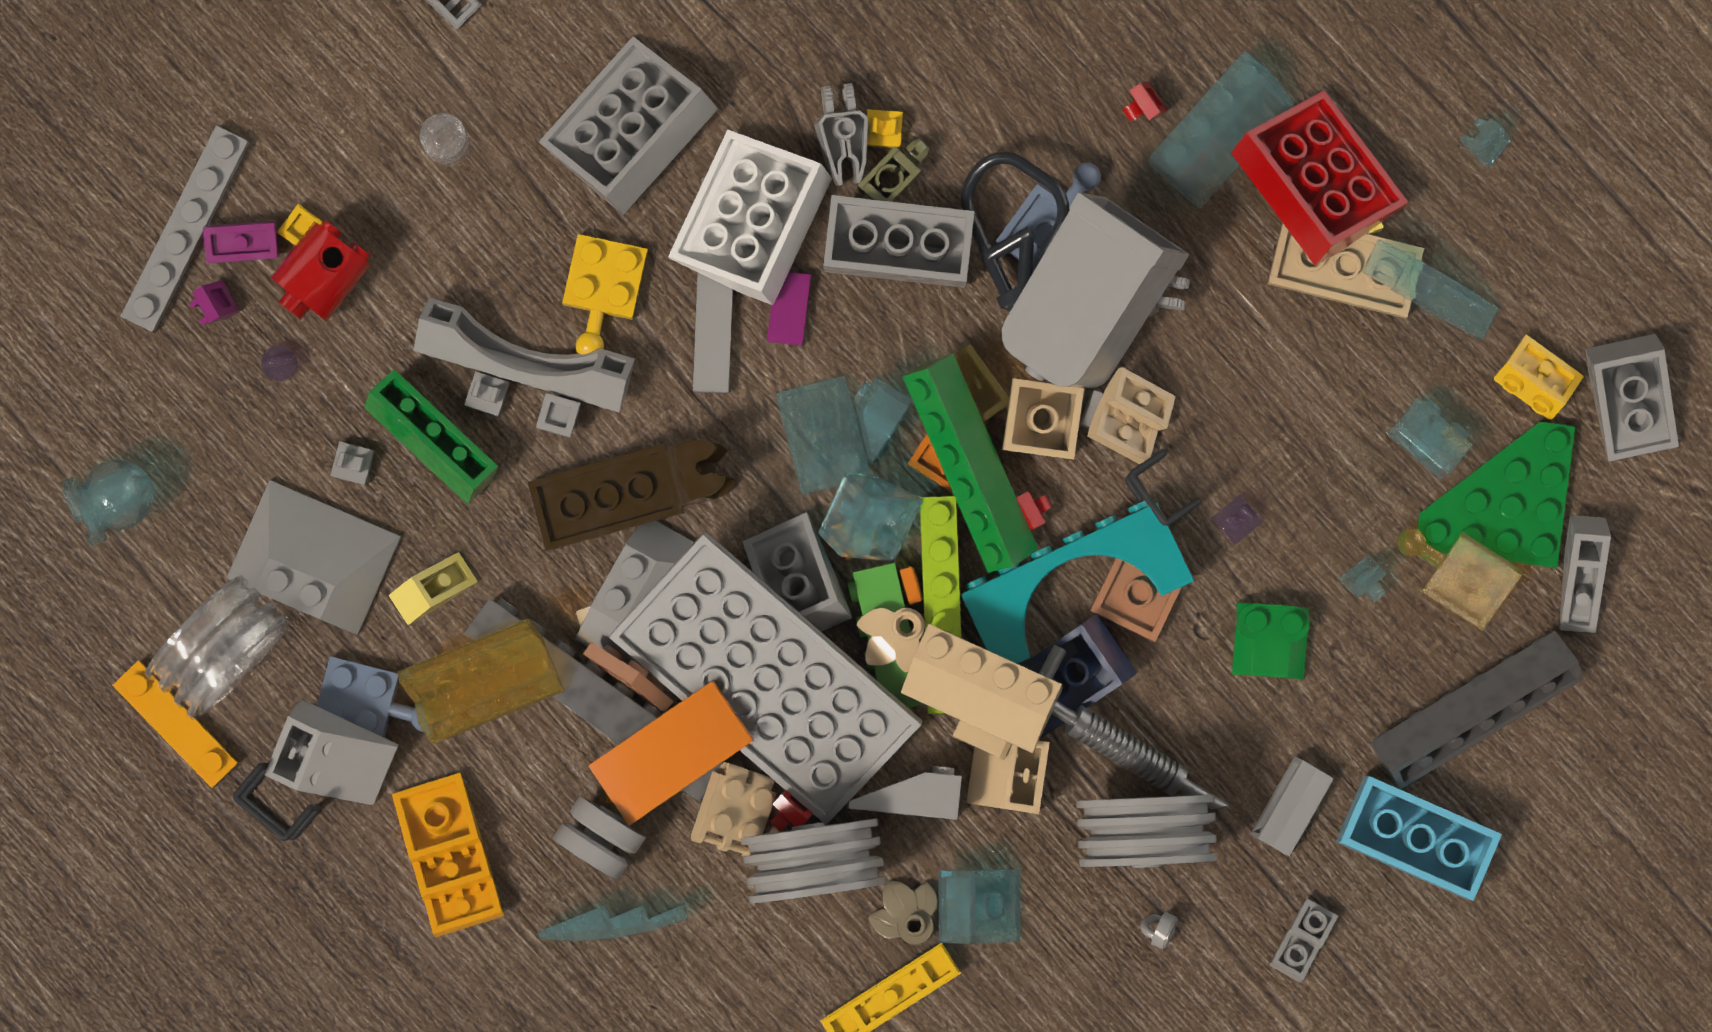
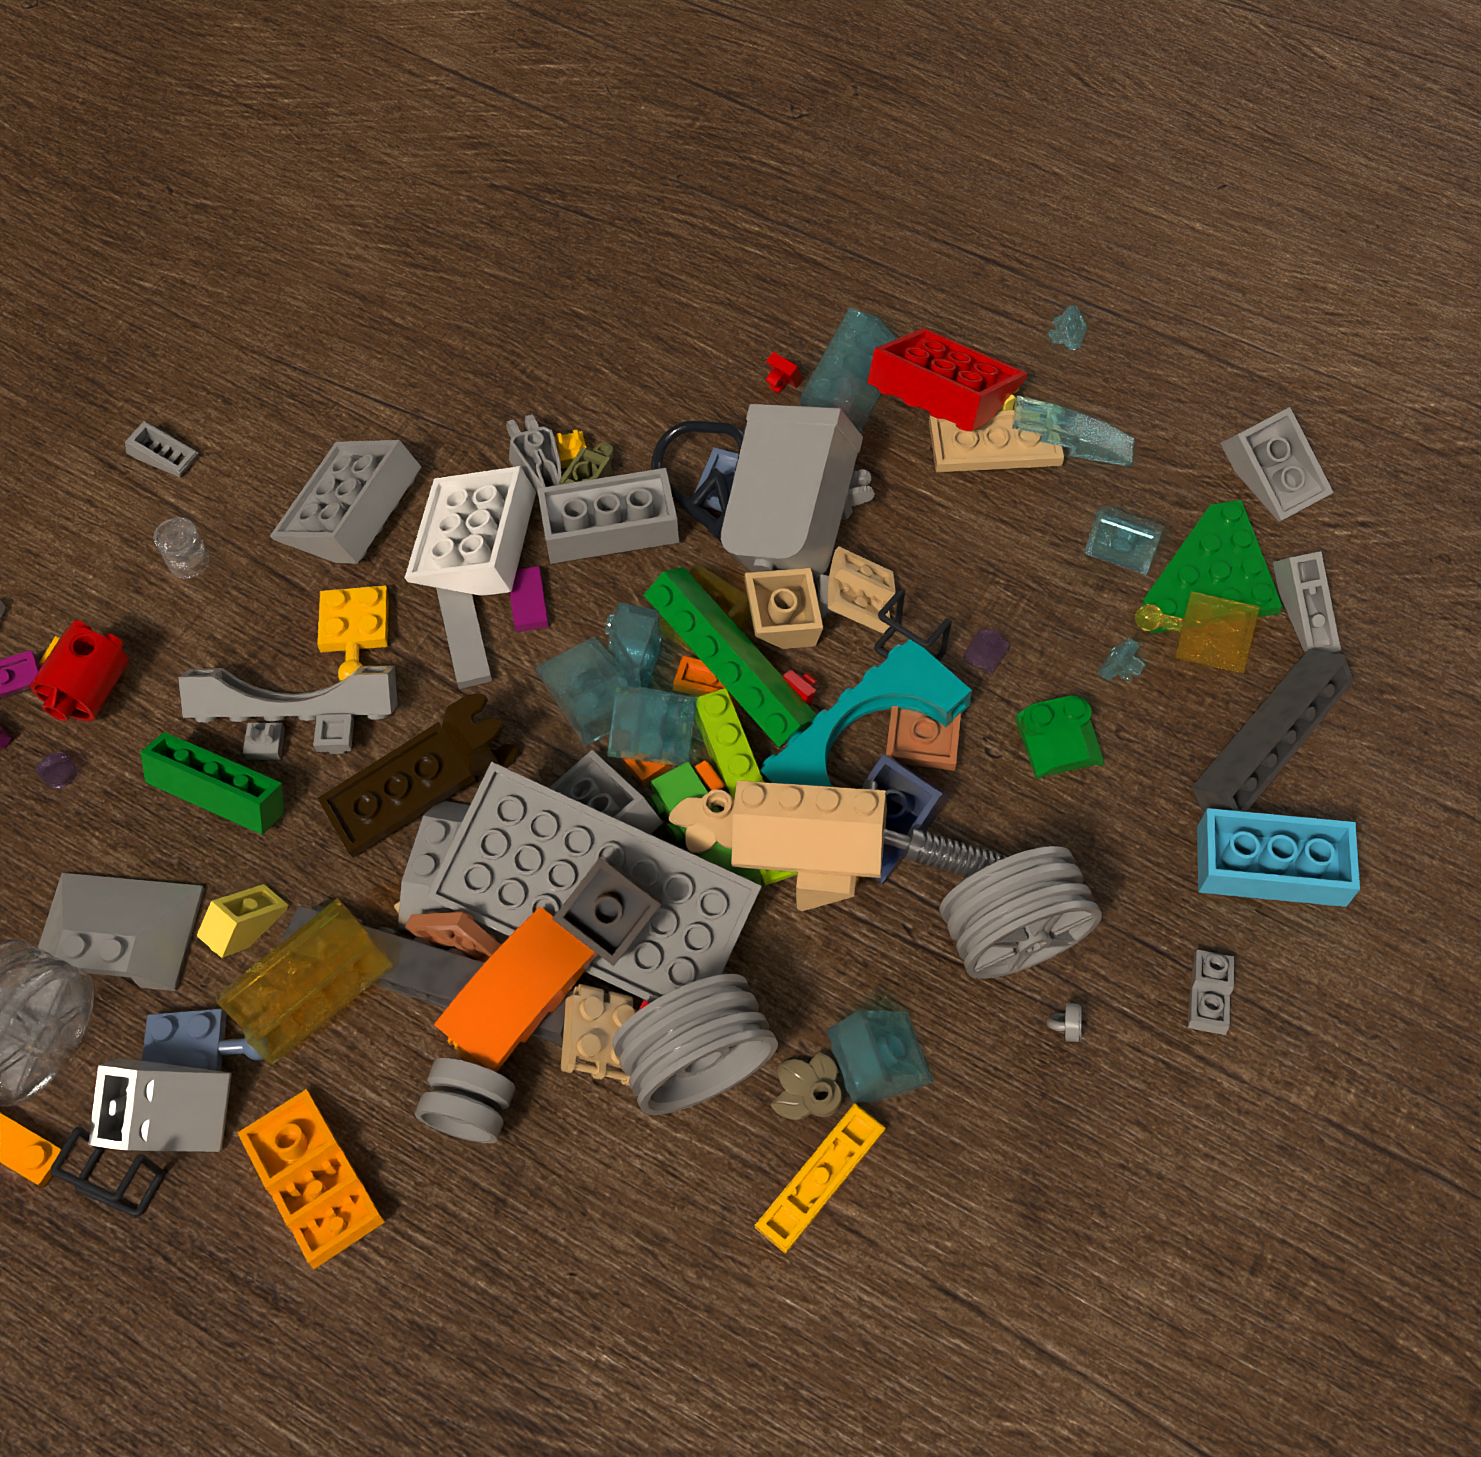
camera: 15 degrees left, 25 degrees down
(352, 463) = (143, 835): light grey tile -> none
(600, 925) = (490, 1199): clear light blue slope -> none
(772, 712) = (607, 910): none -> dark brown brick
(922, 795) = (784, 959): light grey slope -> none
(1010, 782) = (867, 923): tan slope -> none
(1291, 806) = (1144, 872): light grey piece -> none
(1538, 377) = (1192, 476): yellow bracket -> none

